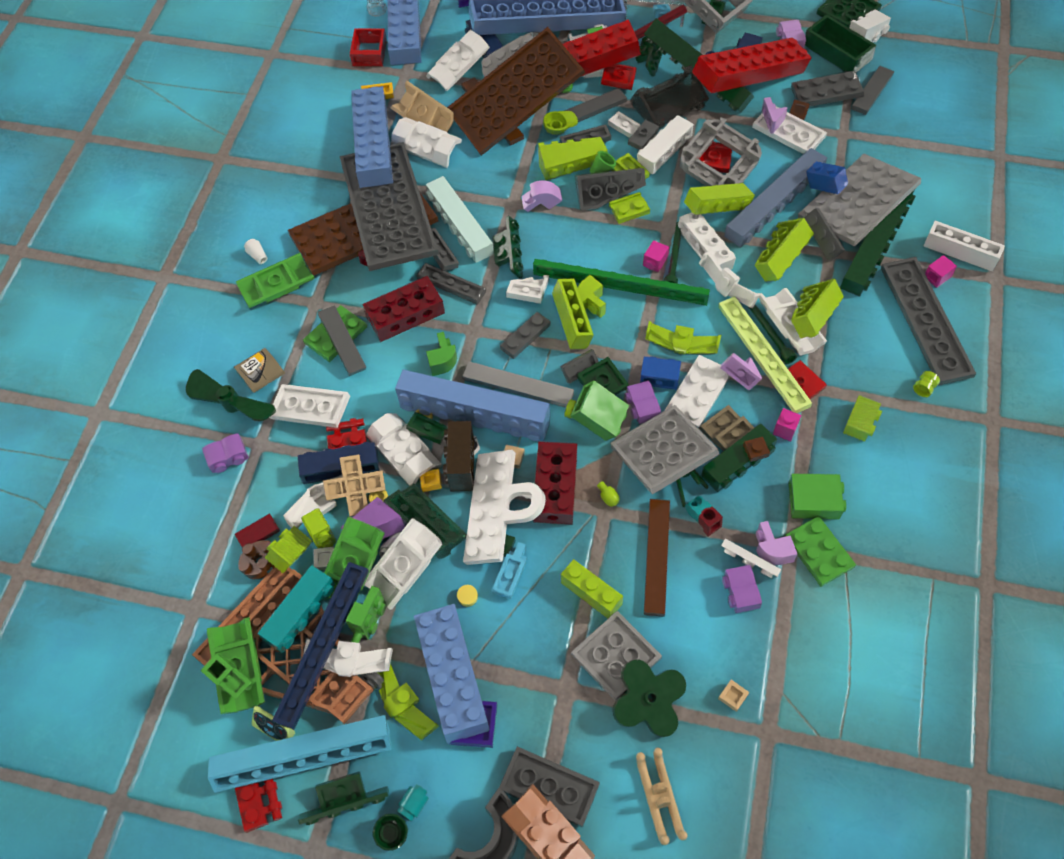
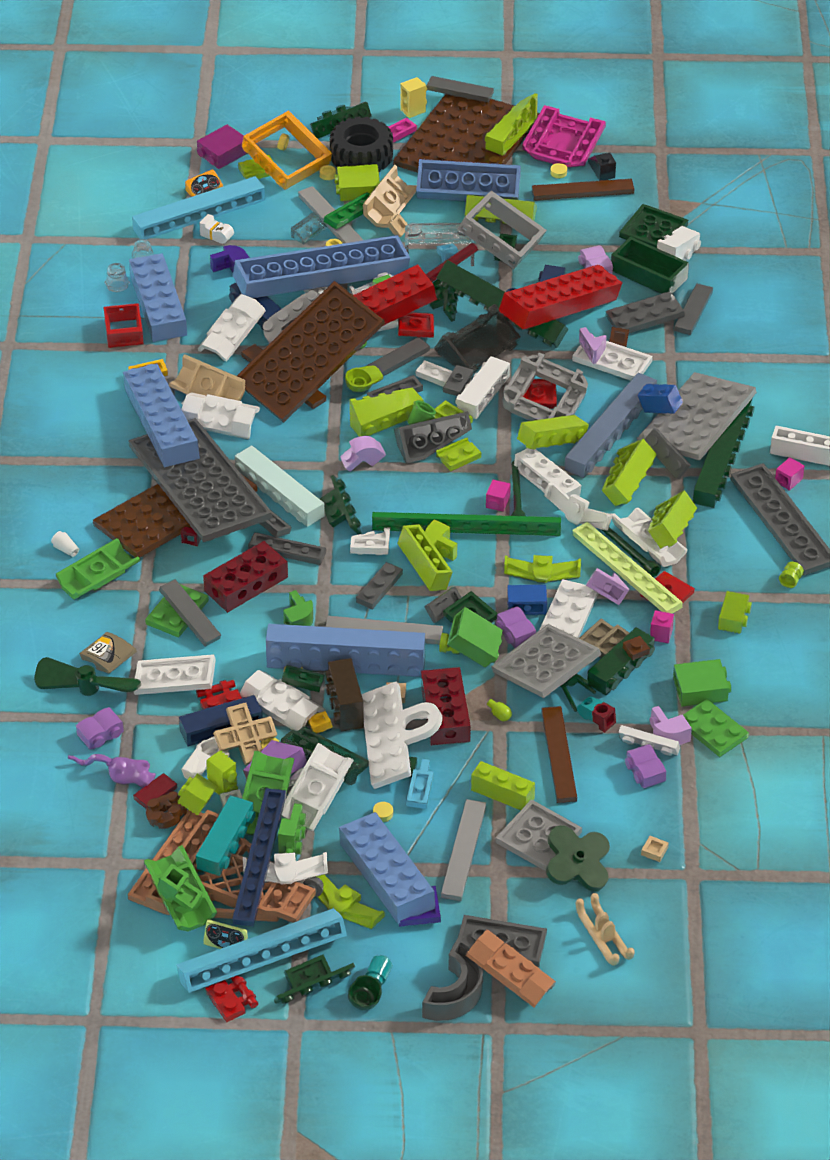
camera: 15 degrees left, 15 degrees down
(233, 506) = (122, 769): none -> medium lavender animal
(536, 659) = (463, 850): none -> light grey tile

